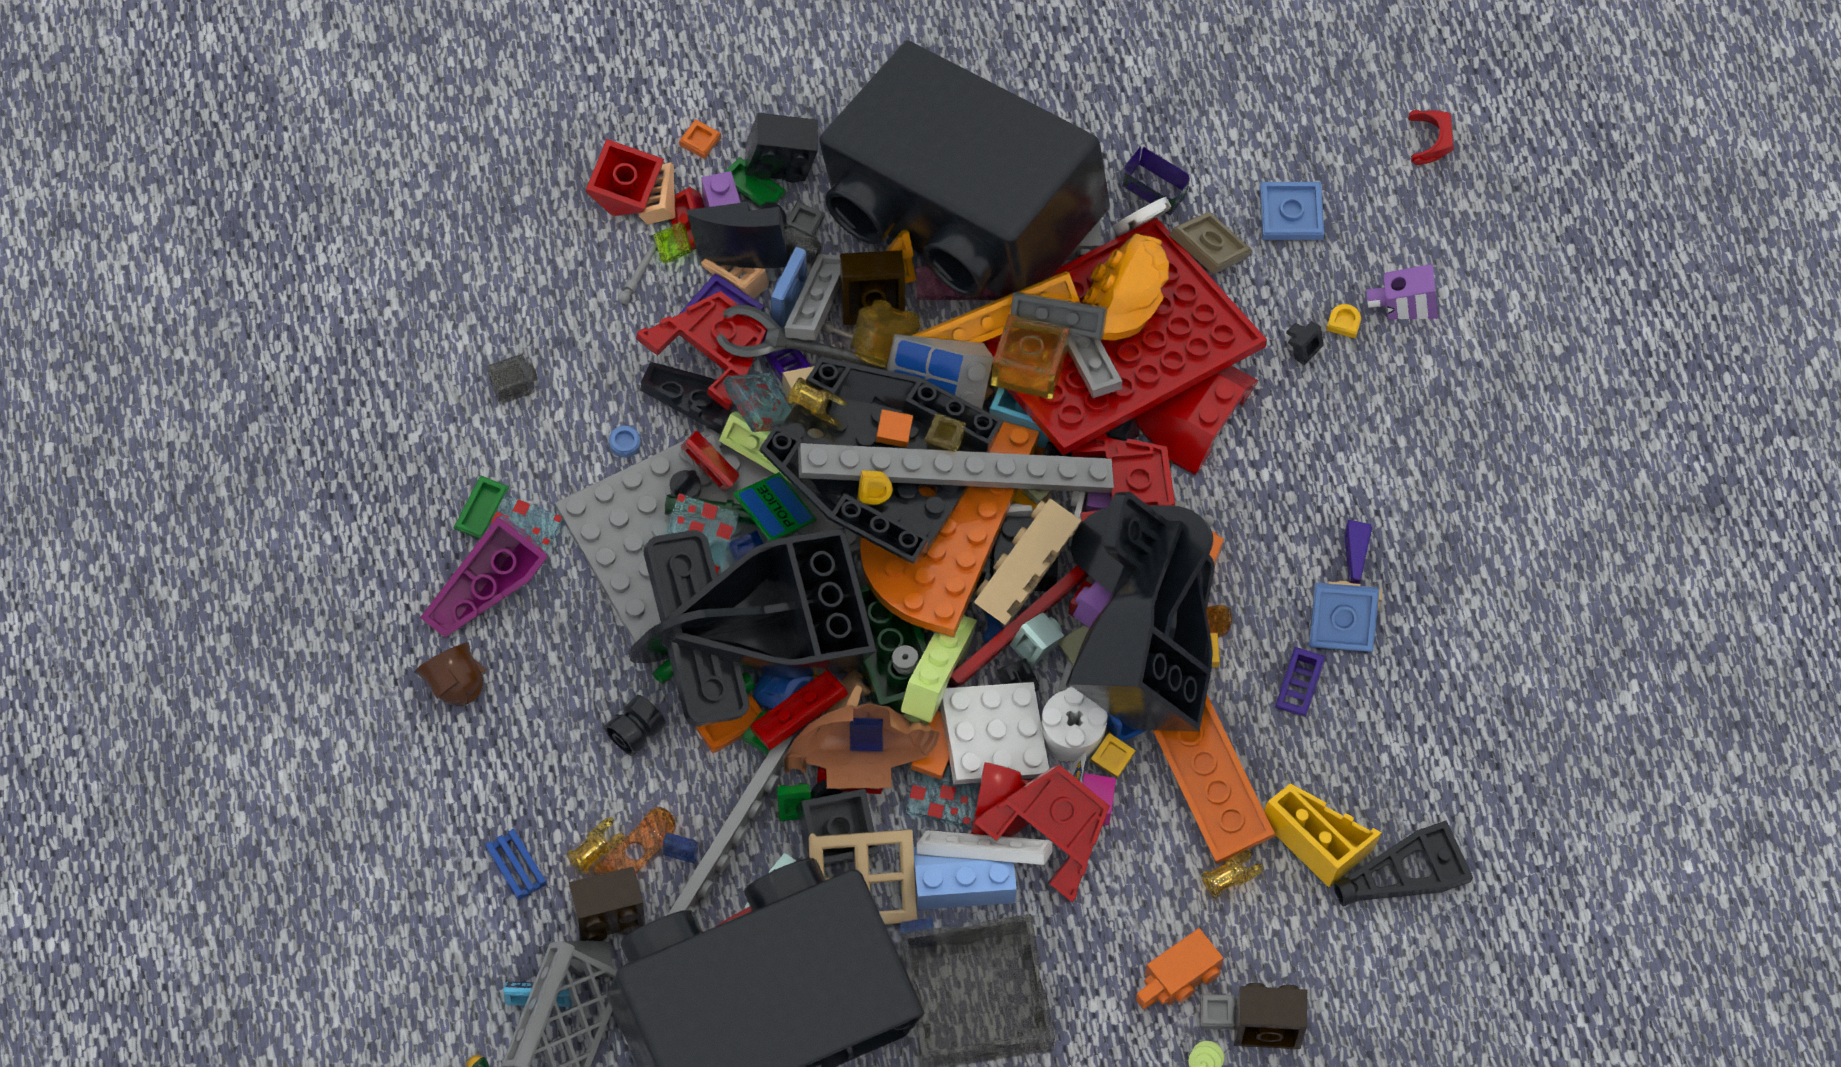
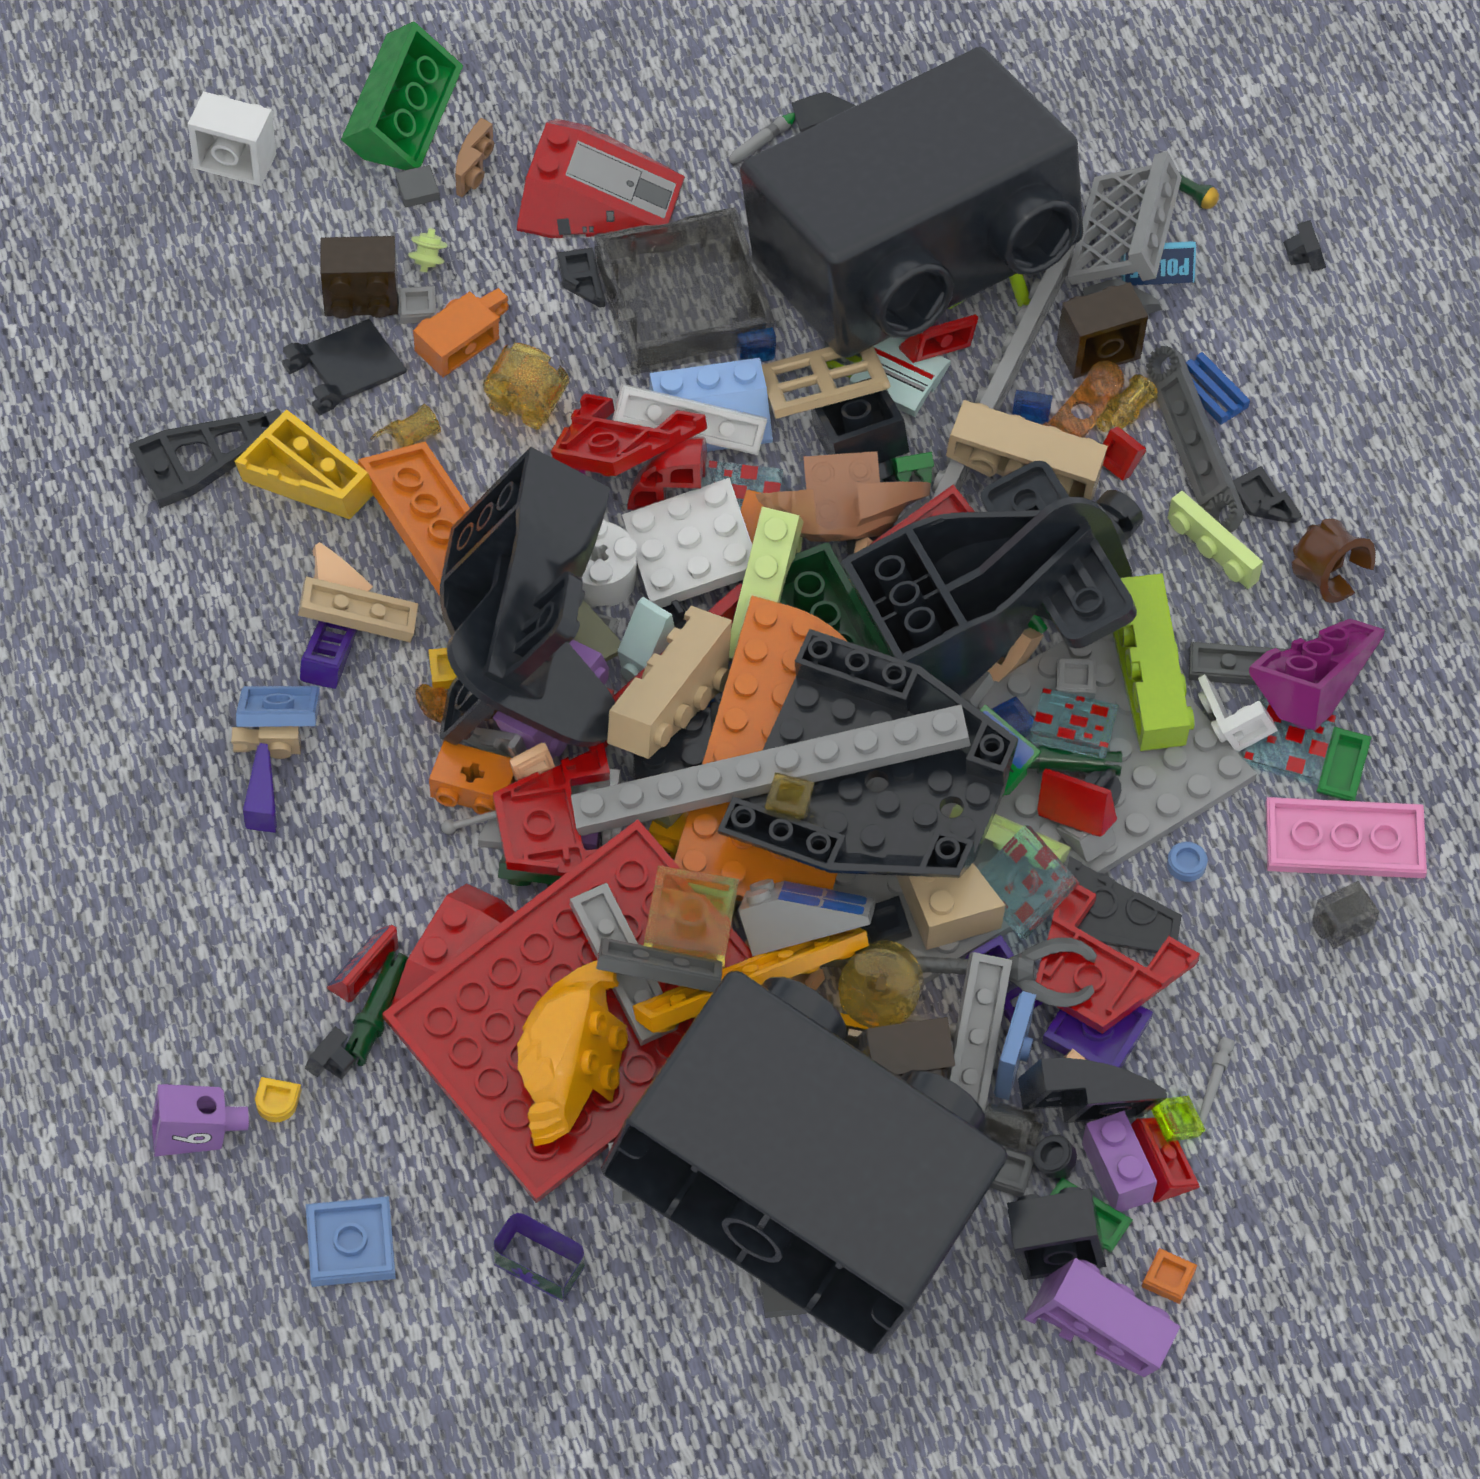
camera: 175 degrees right, 5 degrees down
(398, 994) = (1305, 247): none -> black tile
(493, 753) = (1263, 499): none -> black slope
(494, 449) = (1345, 837): none -> bright pink tile
(542, 808) = (1194, 437): none -> dark grey plate
(546, 604) = (1223, 662): none -> dark grey tile
(546, 706) = (1214, 540): none -> yellowish green plate
(573, 535) = (1240, 729): none -> white bracket
(610, 796) = (1122, 453): none -> red tile
(623, 178) = (1259, 1183): red slope -> none
(628, 574) = (1152, 668): none -> lime wedge
(666, 208) = (1212, 1156): light nougat slope -> none
(695, 772) = (1005, 442): none -> tan wedge
(748, 92) = (1104, 1315): none -> medium lavender wedge
(814, 399) = (955, 818): clear yellow piece -> none
(866, 734) = (837, 521): clear blue tile -> none
(874, 487) = (868, 715): yellow tile -> none
(894, 428) = (854, 808): orange tile -> none
(905, 659) = (804, 587): light grey piece -> none
(1068, 1032) = (581, 275): none -> black tile
(1126, 896) = (525, 384): none -> clear yellow brick
(1142, 216) = (556, 1188): white tile -> none
(1210, 242) = (460, 1174): dark tan plate -> none
(1273, 366) = (370, 1022): none -> dark green pin
(1277, 699) = (358, 609): none -> tan plate
(1278, 413) = (364, 964): none -> red slope
(1280, 952) = (346, 363): none -> black flag
(1294, 738) = (336, 570): none -> light nougat slope
(1444, 143) = (136, 1386): red helmet -> none

